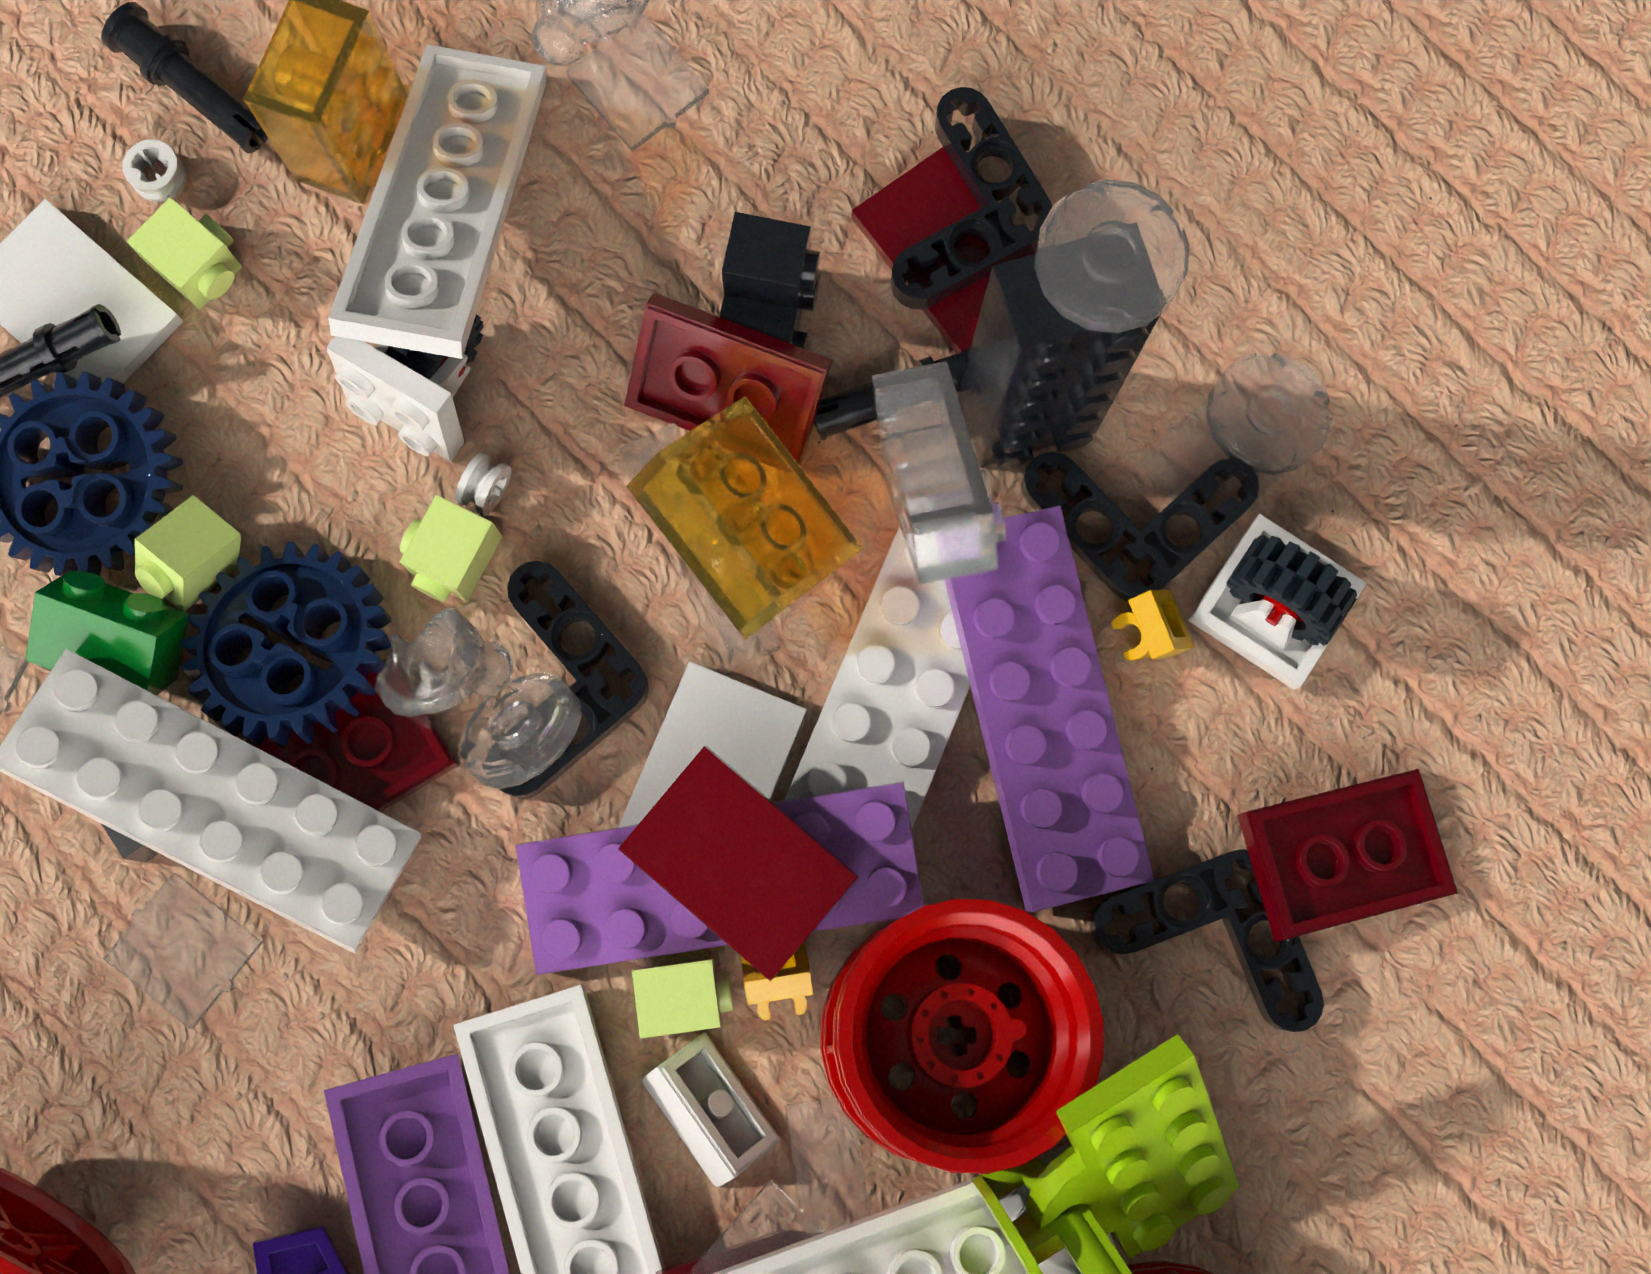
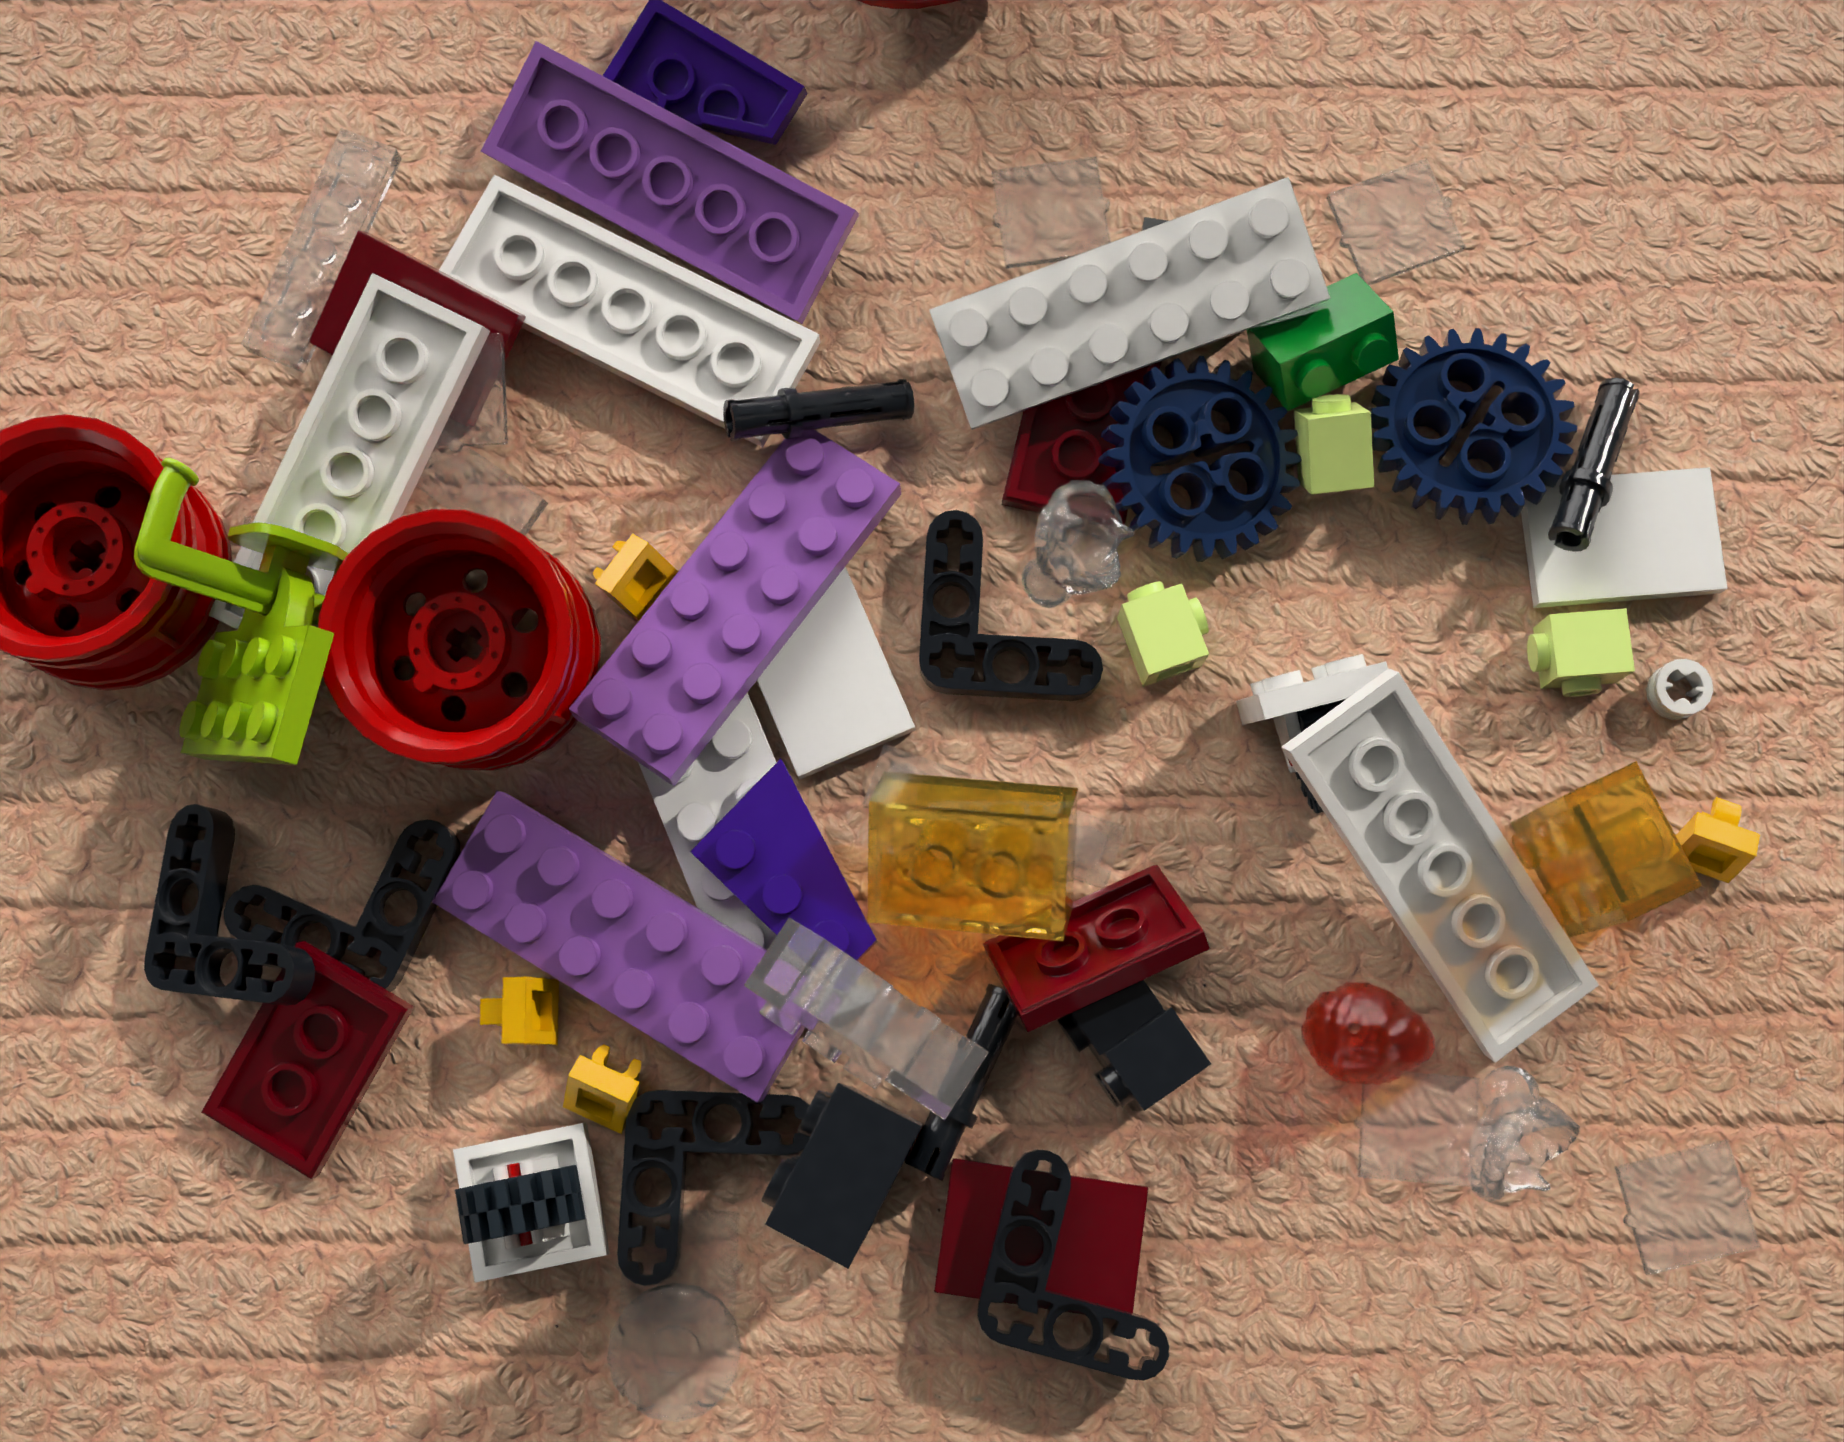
camera: 140 degrees right, 0 degrees up
(167, 62) = (1767, 774): black pin -> none
(244, 48) = (1717, 843): none -> yellow tile
(483, 483) = (1191, 703): white bush -> none
(521, 731) = (975, 558): clear tile -> none
(534, 975) = (796, 412): none -> black pin
(593, 134) = (1388, 1039): none -> clear red piece
(681, 998) = (683, 495): yellowish green brick -> none
(711, 1110) = (594, 454): white slope -> none
(738, 862) = (728, 611): dark red tile -> none
(884, 647) = (782, 867): none -> dark purple wing
(1111, 256) = (838, 1220): clear tile -> none
(1161, 733) = (525, 1011): none -> yellow tile
(1350, 1027) = (196, 933): none -> black beam

